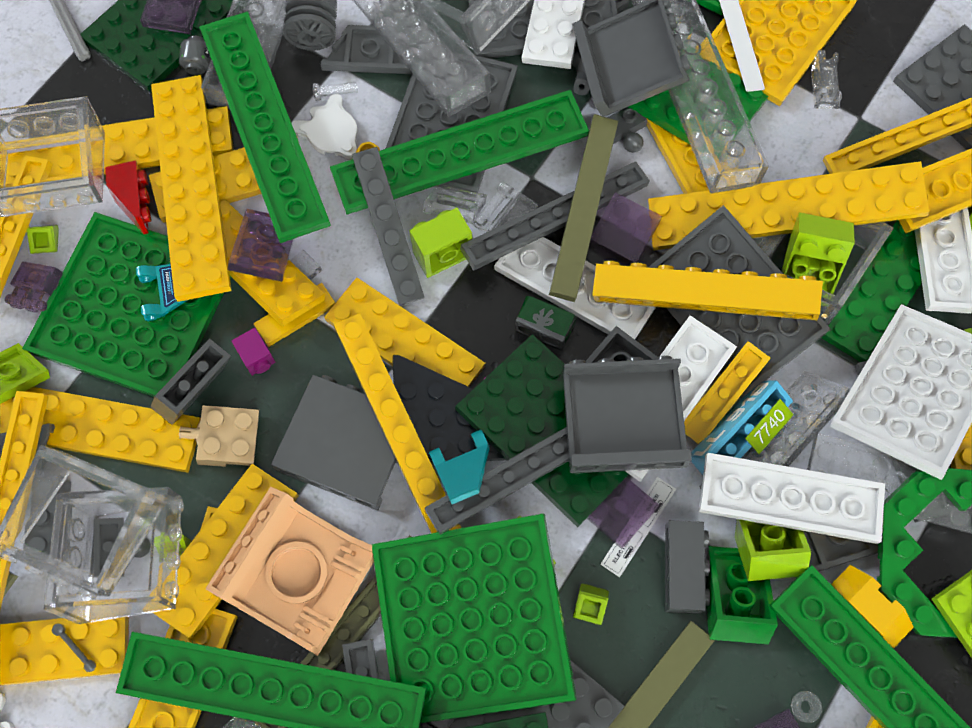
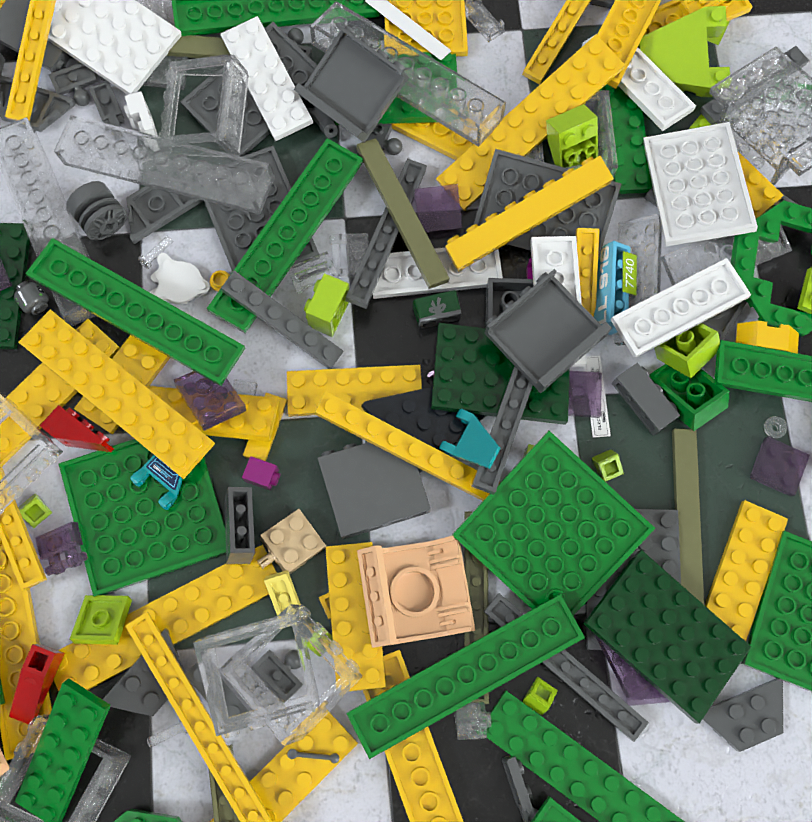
camera: 45 degrees left, 5 degrees up
(178, 471) = (281, 591): none -> light yellow plate

